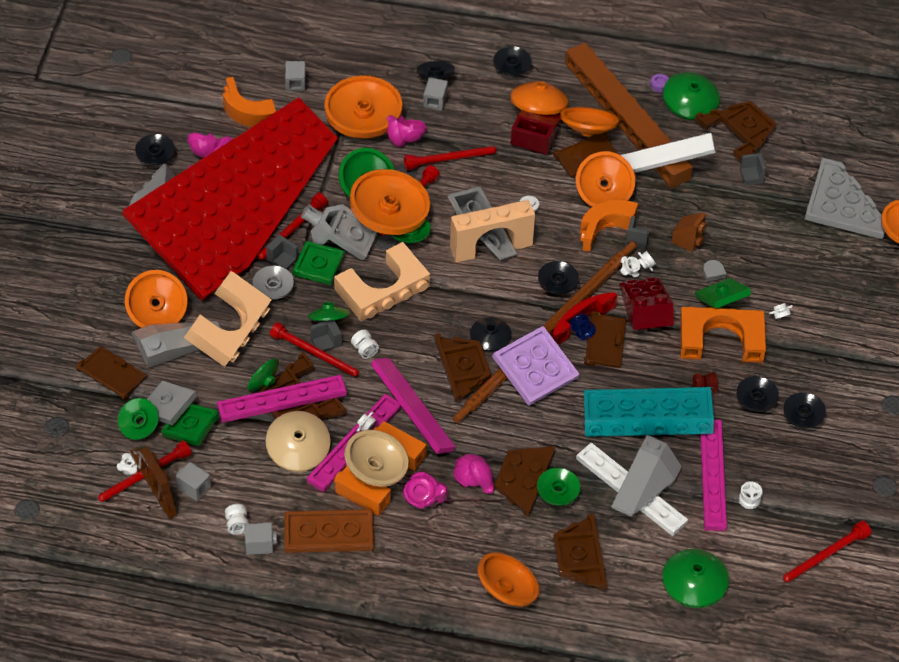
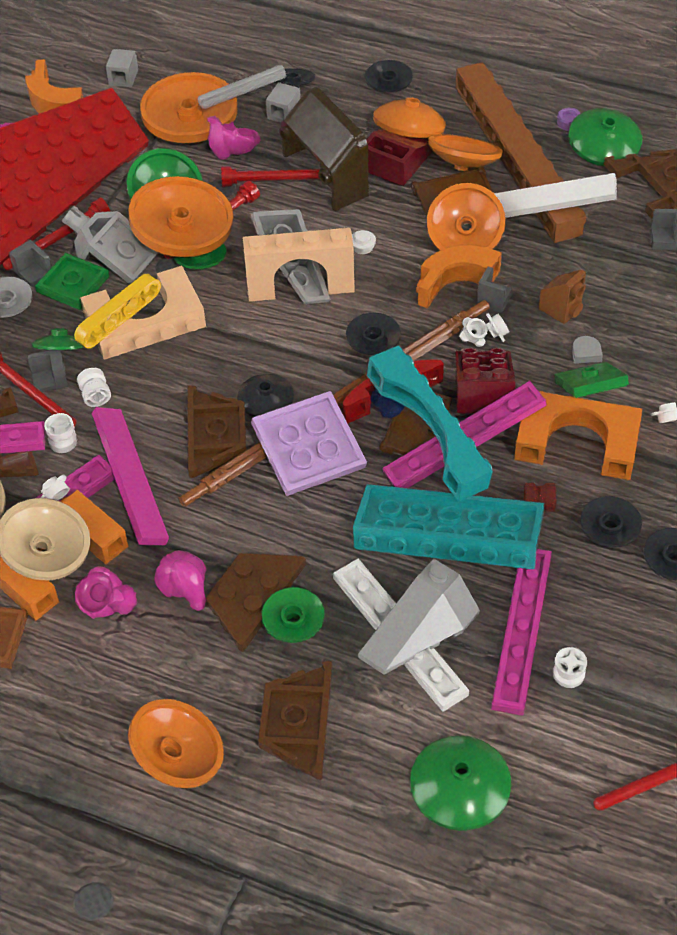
camera: 15 degrees right, 0 degrees up
(353, 381) = (60, 433): none -> white wheel
(370, 284) = (97, 326): none -> yellow beam
(403, 86) = (241, 87): none -> light grey axle
(491, 126) = (334, 141): none -> dark brown windscreen
(591, 311) = (399, 380): none -> teal arch
(644, 346) = (479, 426): none -> dark pink tile

